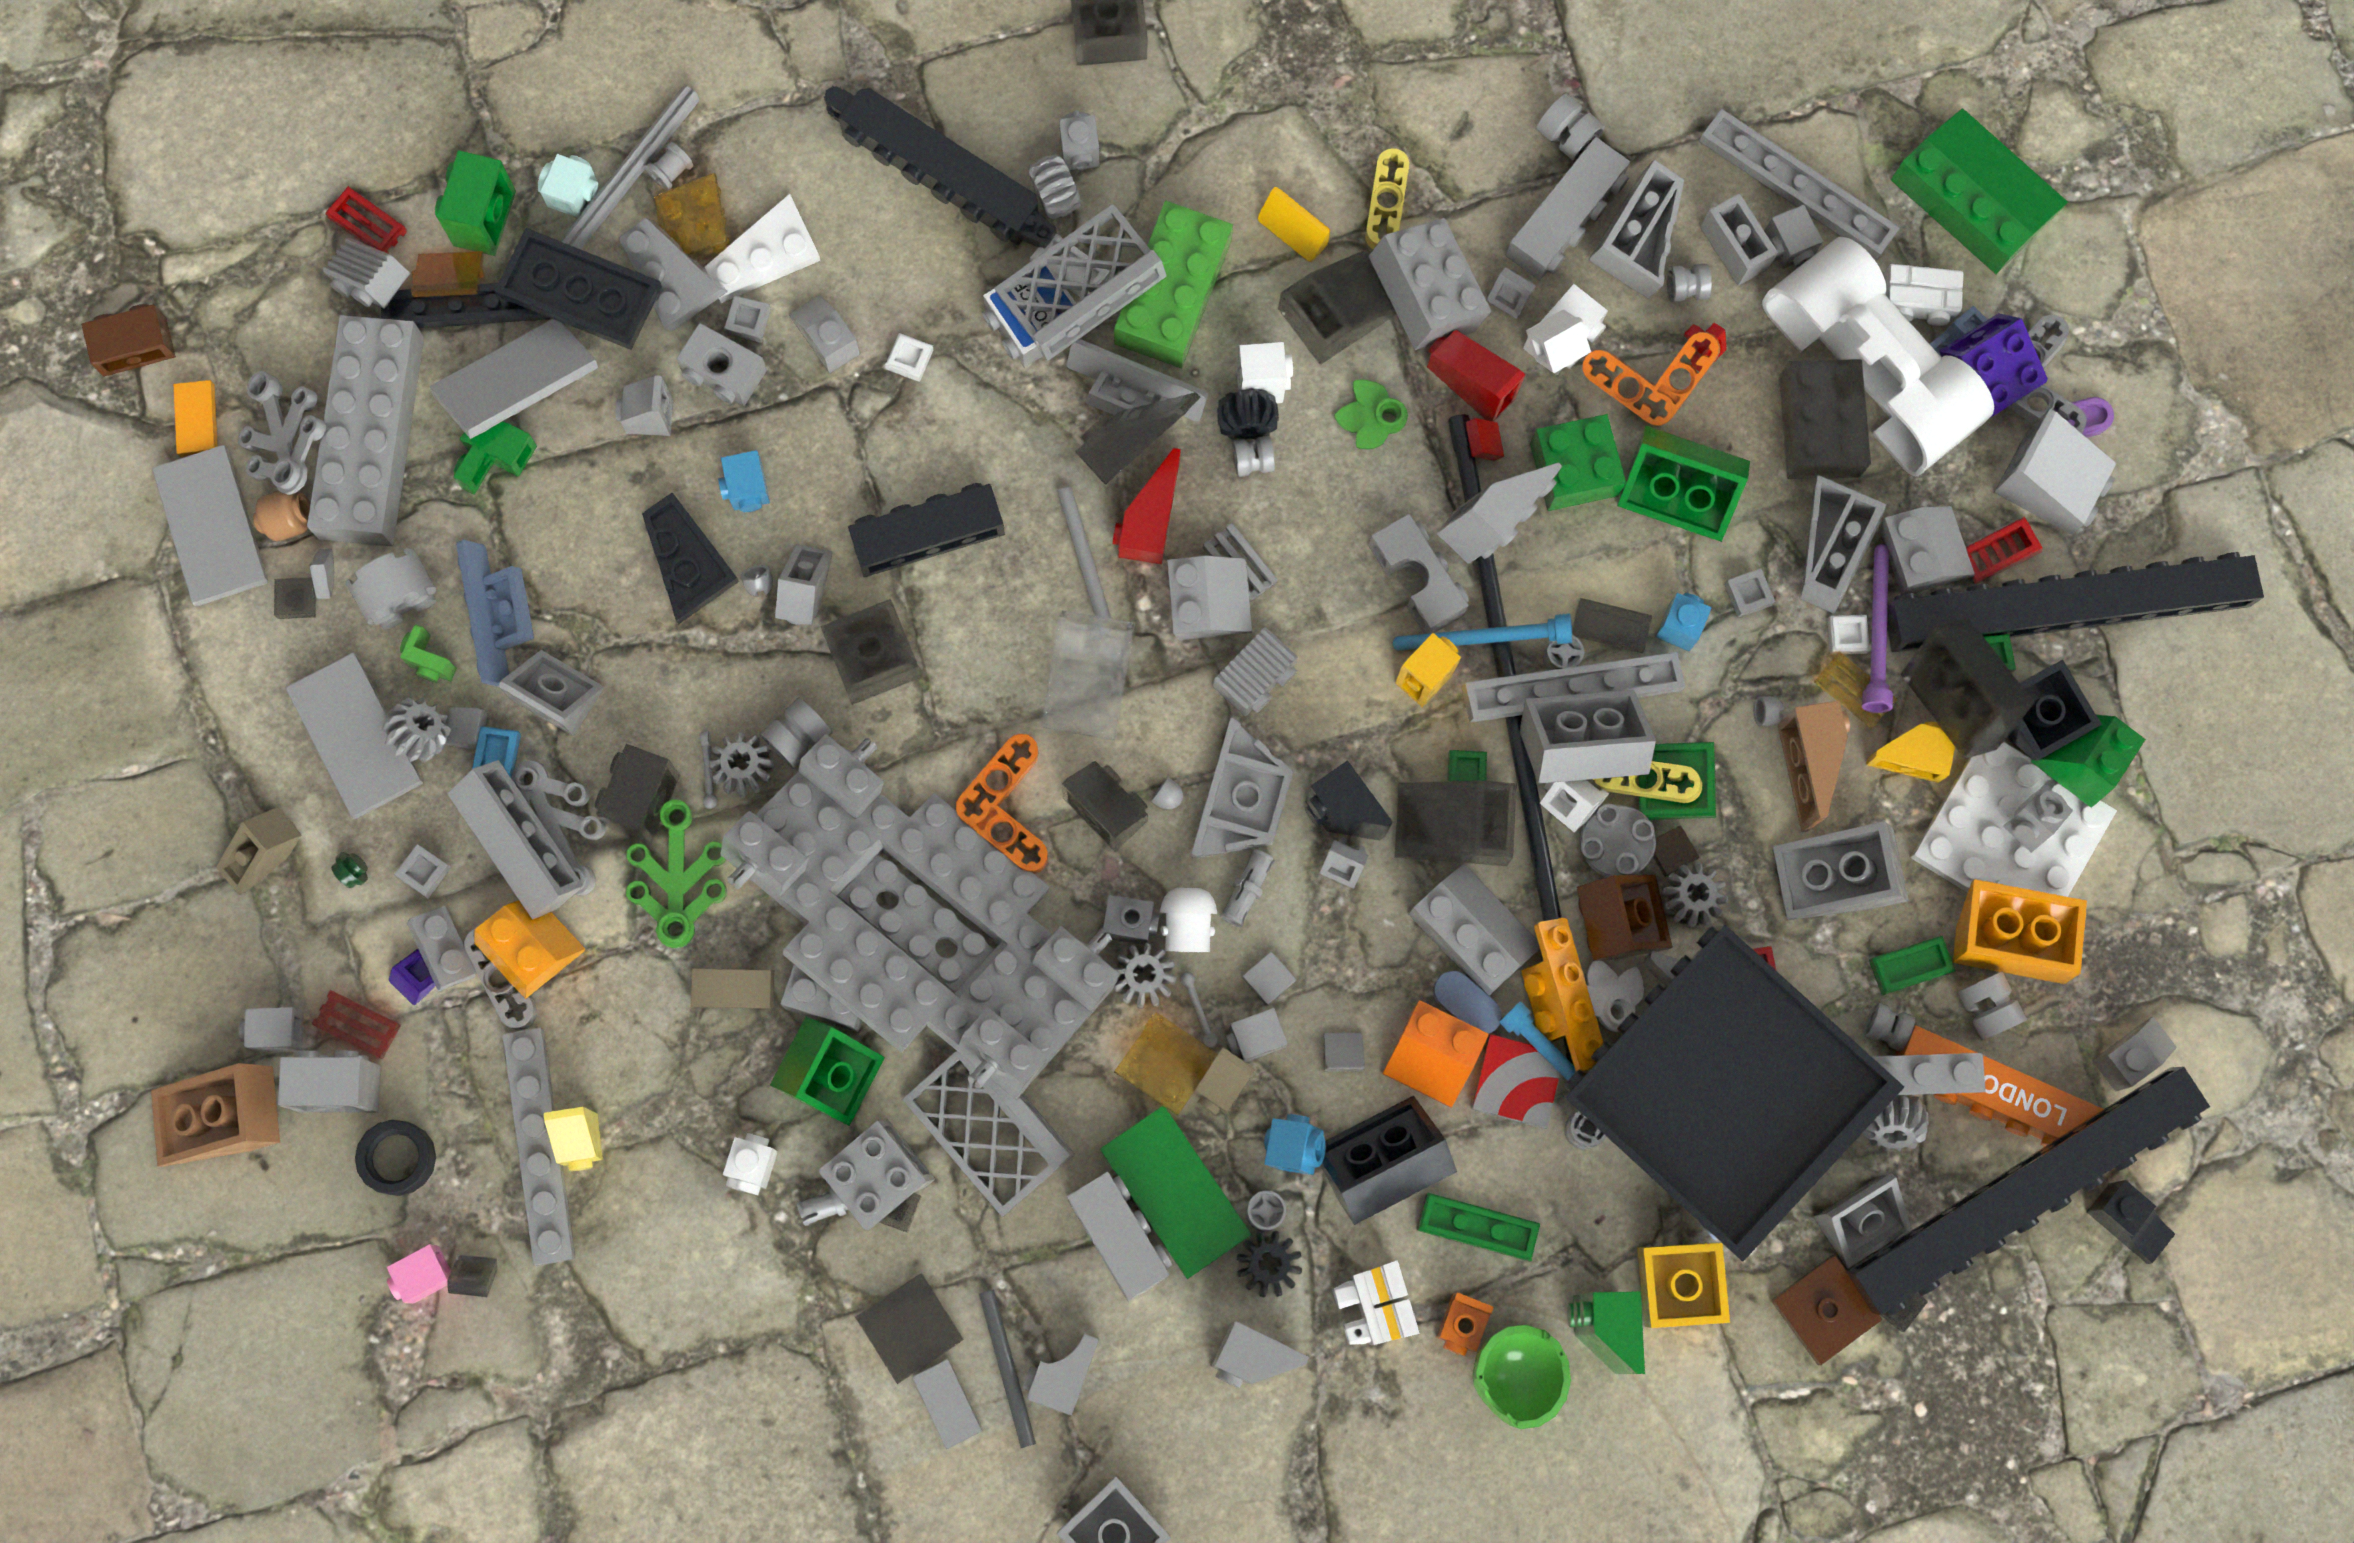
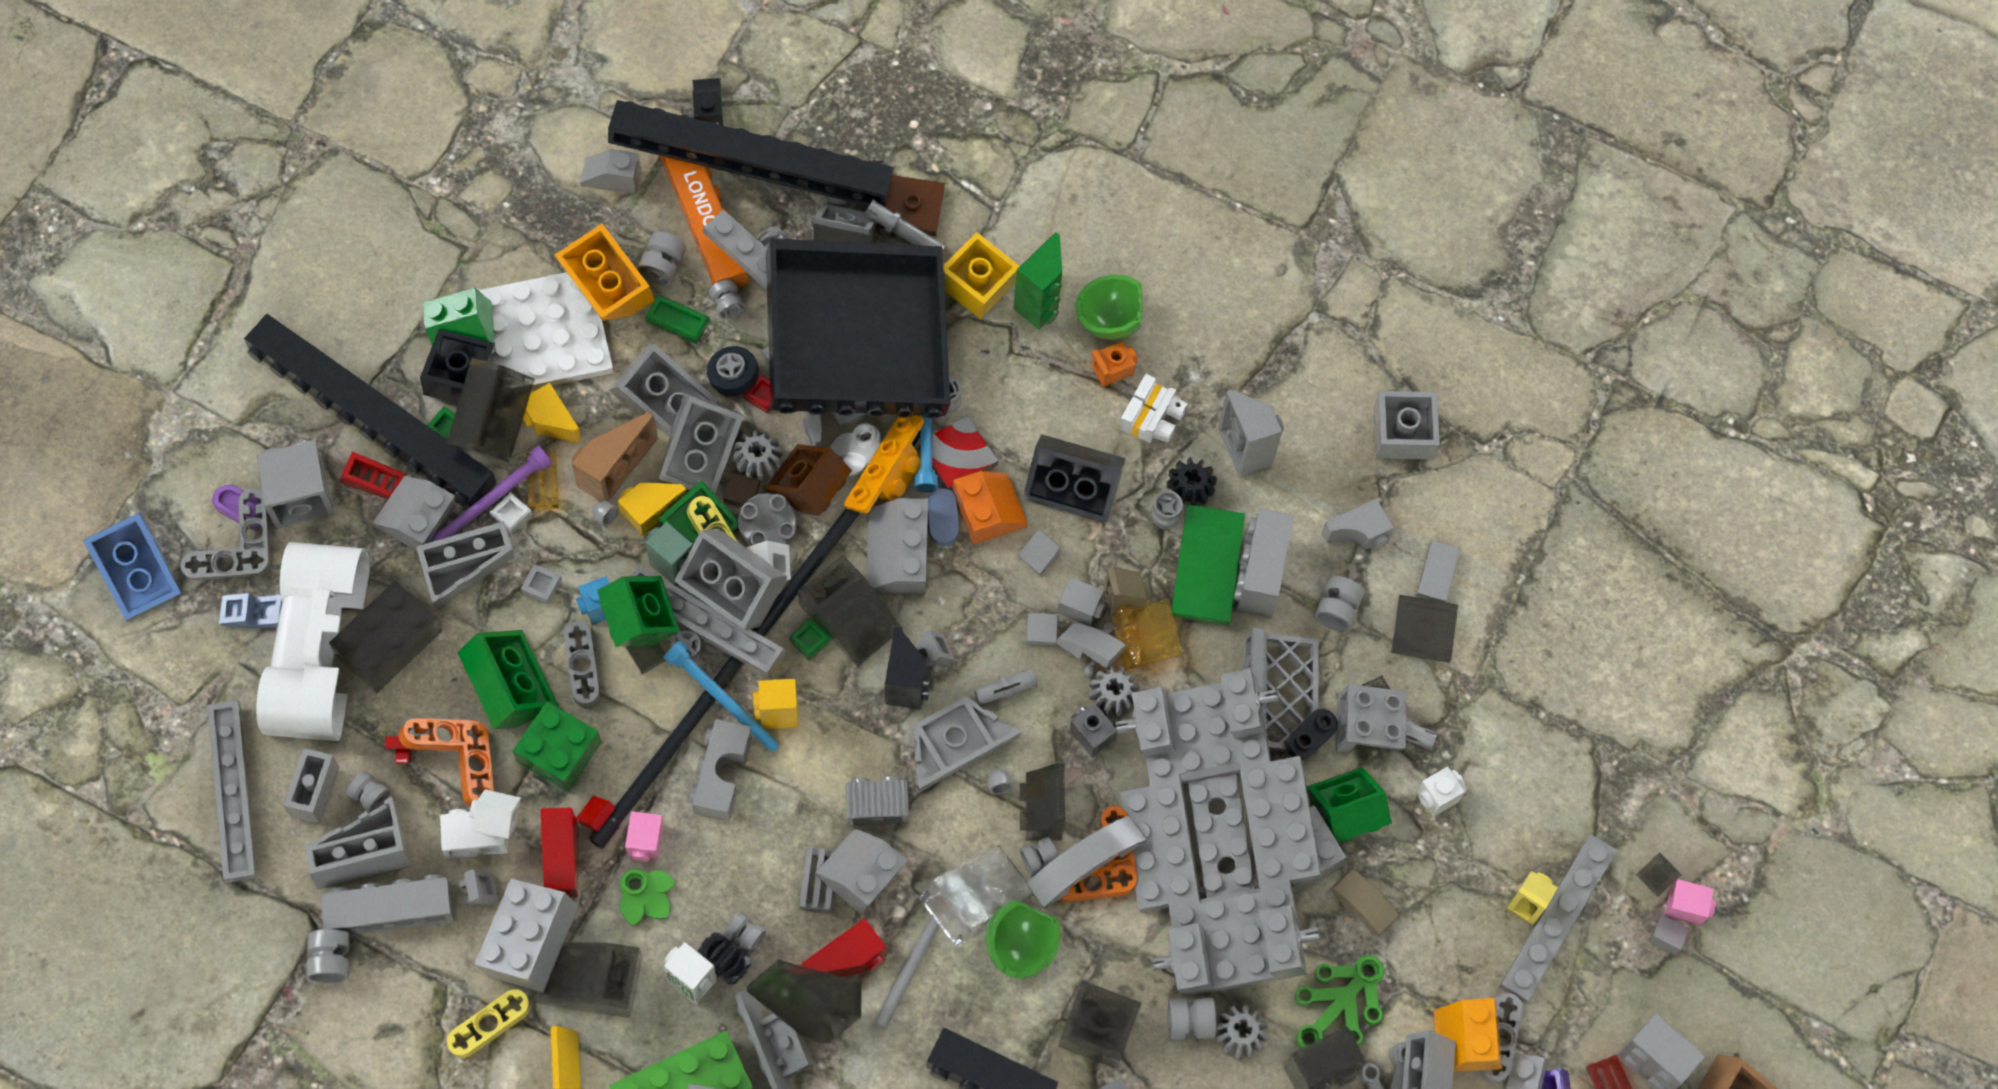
camera: 135 degrees left, 10 degrees down
(370, 1141) = (1665, 965): black tyre -> none
(417, 1226) = (1669, 935): none -> light grey slope
(710, 799) = (1279, 1031): light grey hinge -> none
(925, 1107) = (1313, 733): none -> black plate
(1007, 1368) = (1387, 561): dark grey bar -> none
(1009, 660) = (1021, 939): none -> bright green cylinder
(1011, 1268) = (1339, 603): none -> light grey wheel
(1017, 788) = (1084, 859): none -> light grey slope
(1065, 756) = (1038, 856): none -> light grey wheel
(1188, 919) = (1059, 695): white piece -> none
(1207, 1000) = (1096, 644): none -> light grey slope
(1294, 1145) = (1118, 526): dark azure brick -> none
(1422, 458) = (644, 836): none -> bright pink brick
(1478, 1227) = (1055, 403): green tile -> none
(1493, 513) = (641, 749): light grey slope -> none
(1633, 625) = (638, 611): none -> green brick
(1652, 554) = (593, 683): none -> light grey beam
(1672, 714) = (667, 551): none -> sand green brick
(1738, 751) = (648, 502): none -> yellow slope
(1756, 853) = (699, 443): none -> light grey slope
(1793, 237) = (275, 760): light grey brick -> none
(1803, 1267) = (899, 226): none -> light grey pin
(1818, 953) = (722, 367): none -> black wheel
(1925, 292) = (240, 654): white brick -> none
(1978, 190) = (130, 685): green slope -> none
(2002, 358) = (251, 573): dark purple bracket -> none
(2038, 818) = (531, 315): light grey brick -> none
(2102, 282) = (132, 565): none -> medium blue slope

